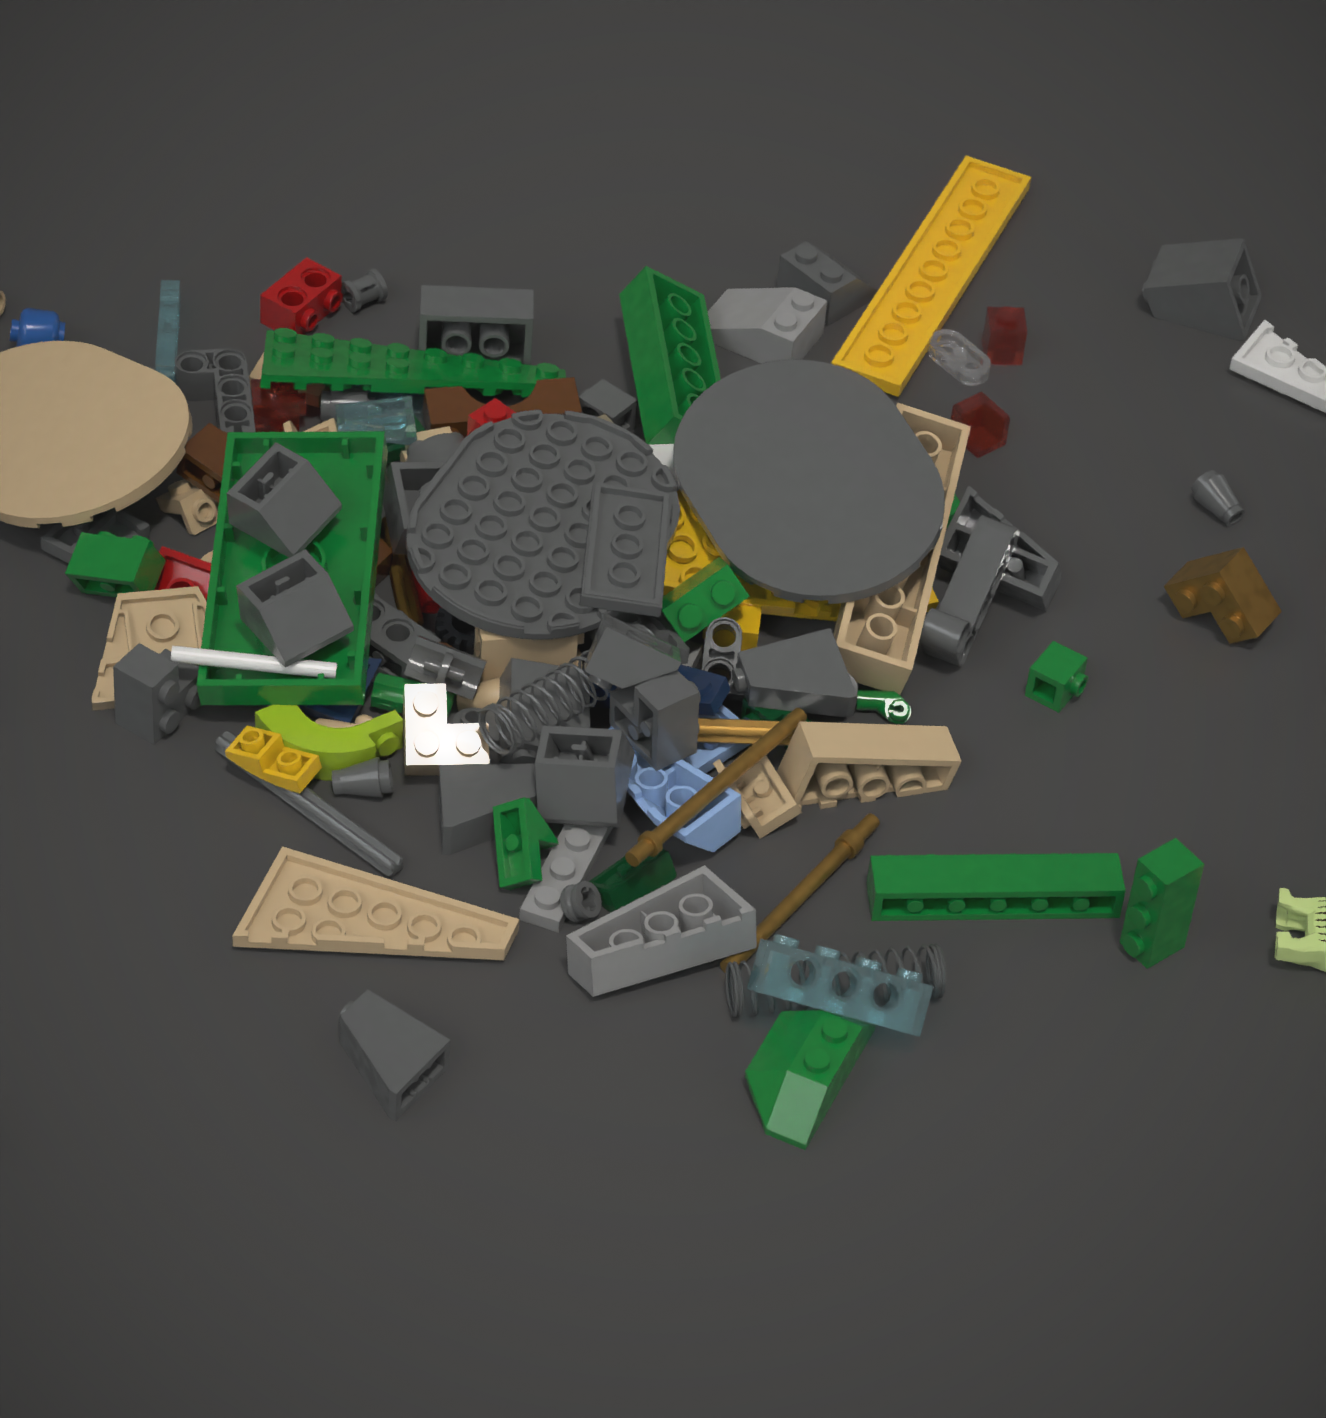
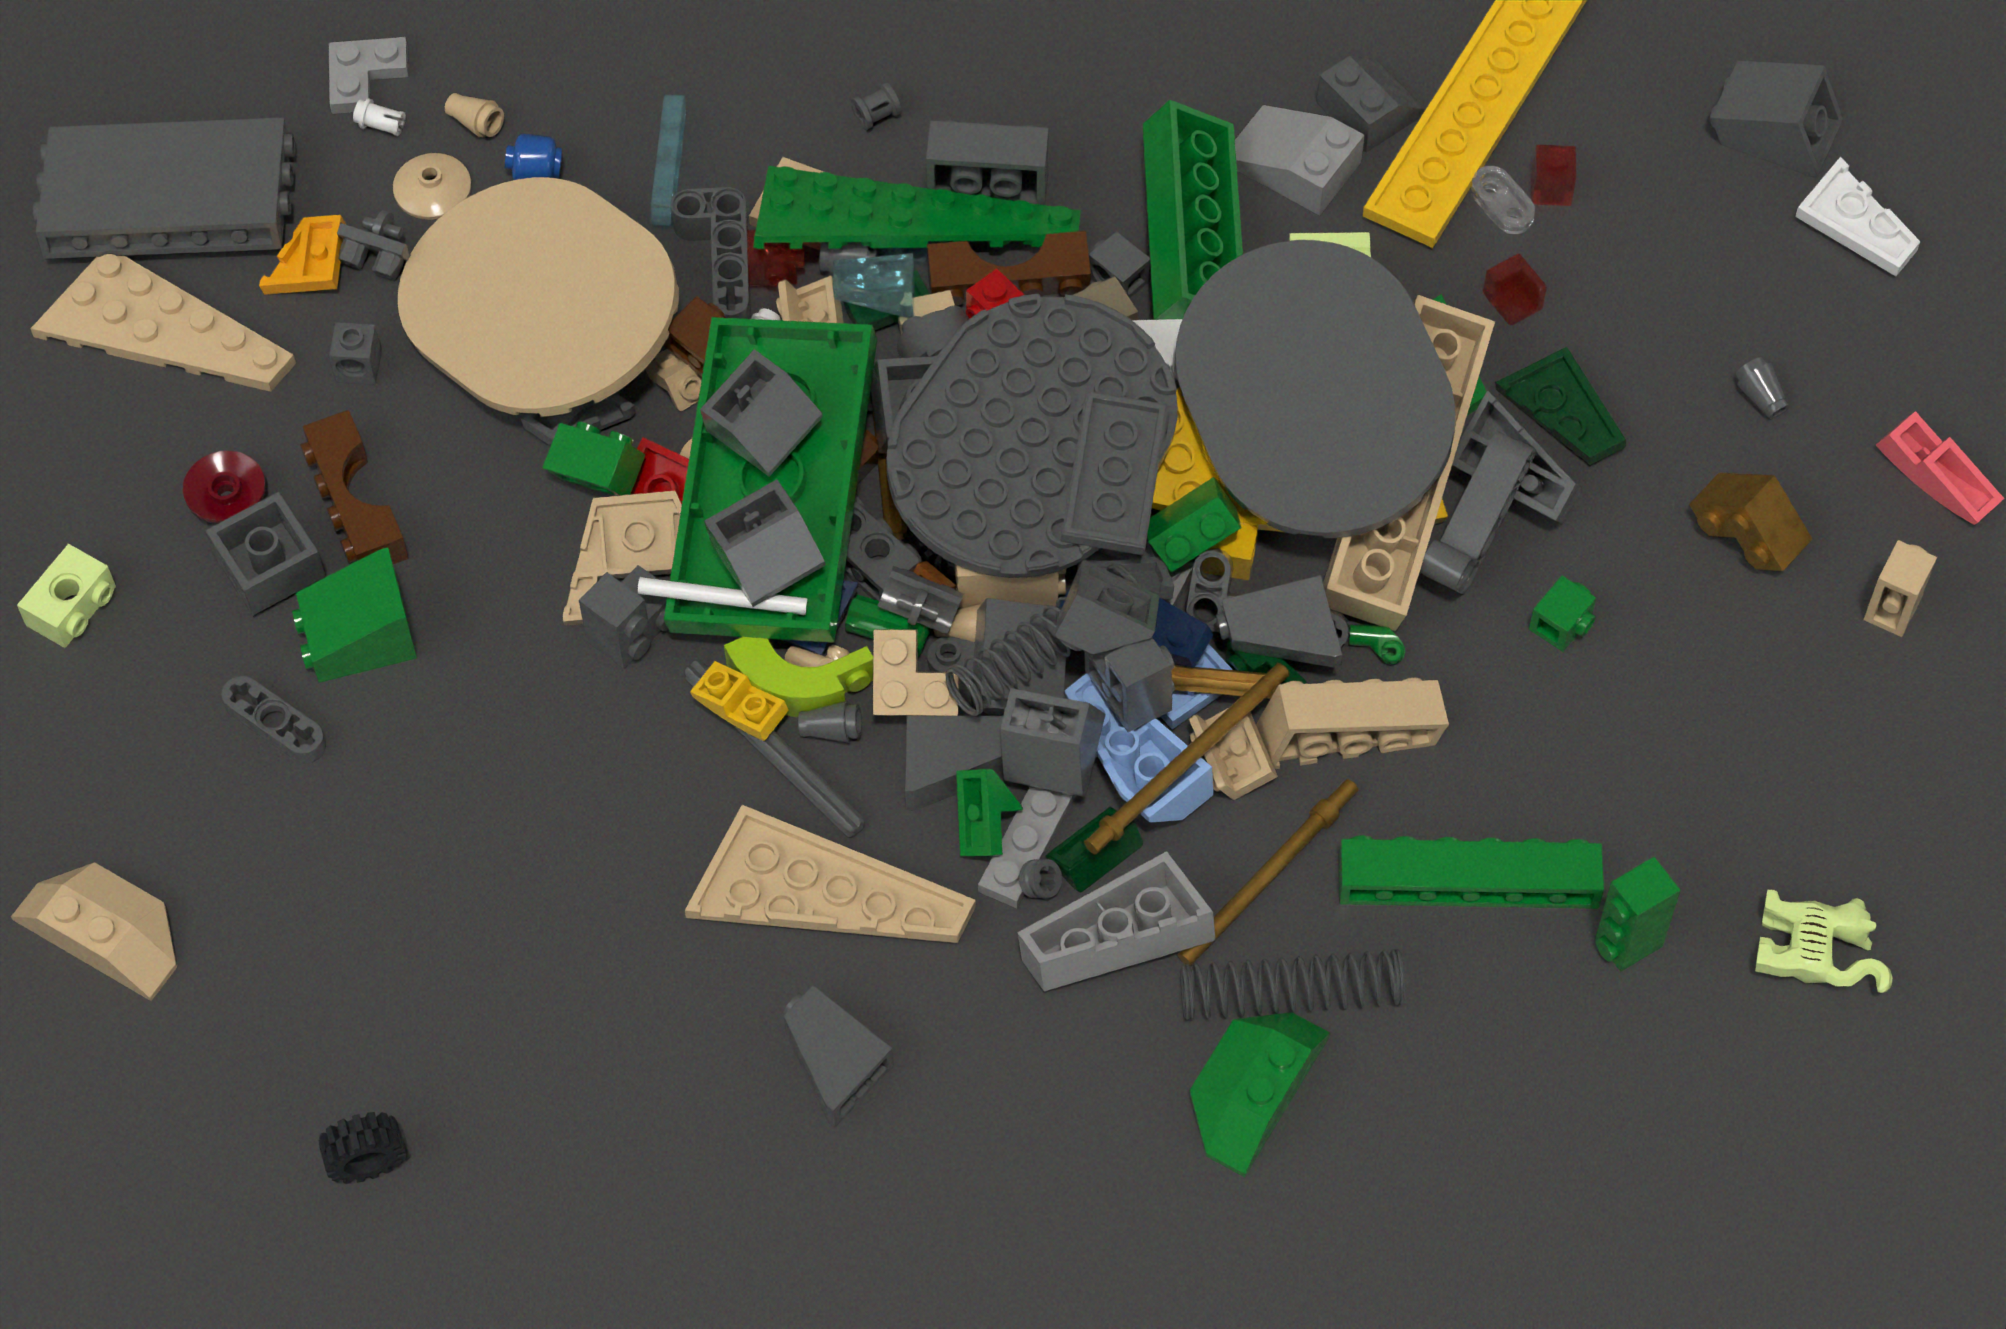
camera: 10 degrees right, 15 degrees up
(301, 297) = (810, 118): red brick -> none
(902, 1013) = (1351, 1034): clear light blue brick -> none
(1042, 514) = (1565, 405): none -> dark green wing

